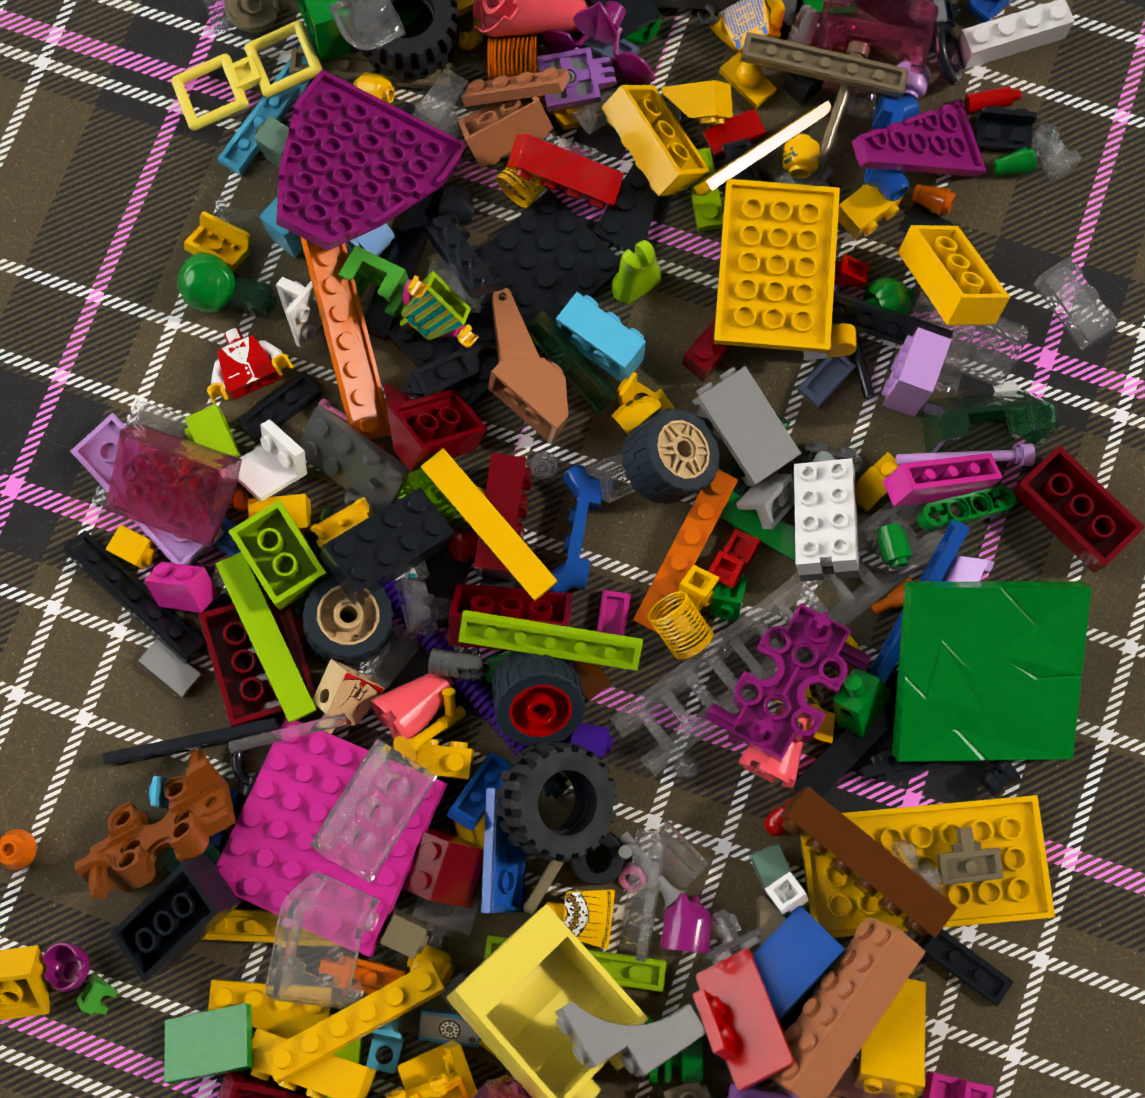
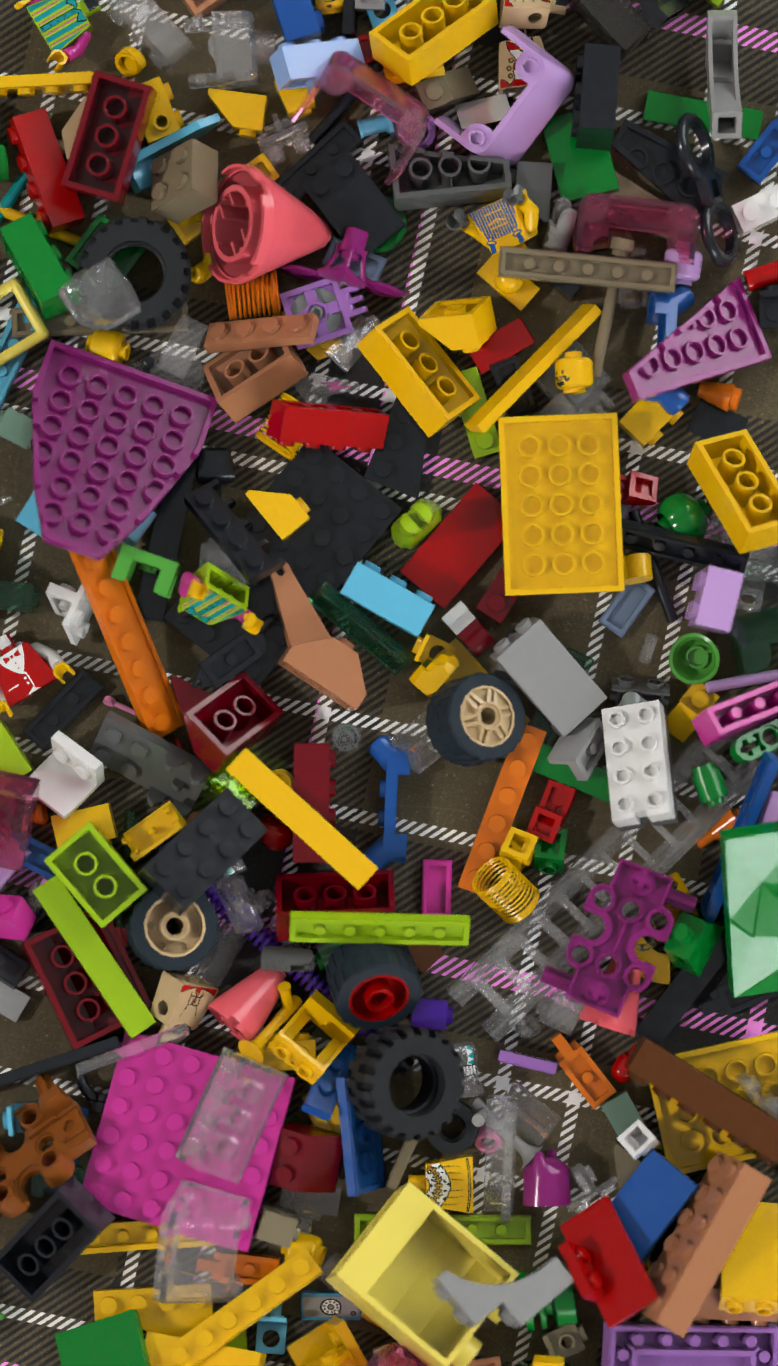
camera: 10 degrees left, 10 degrees up
(485, 728) = (324, 1015): none -> yellow panel
(510, 245) = (280, 511): none -> yellow slope
(623, 808) = (469, 1057): none -> clear leg
(672, 377) = (468, 629): none -> leg
(674, 304) = (457, 547): none -> red tile
(681, 801) = (527, 1061): none -> medium lavender tile
(720, 755) = (558, 1011): none -> clear slope
(736, 819) = (582, 1071): none -> orange hinge
(843, 417) = (647, 649): none -> clear tile
(889, 429) = (694, 658): none -> bright green helmet

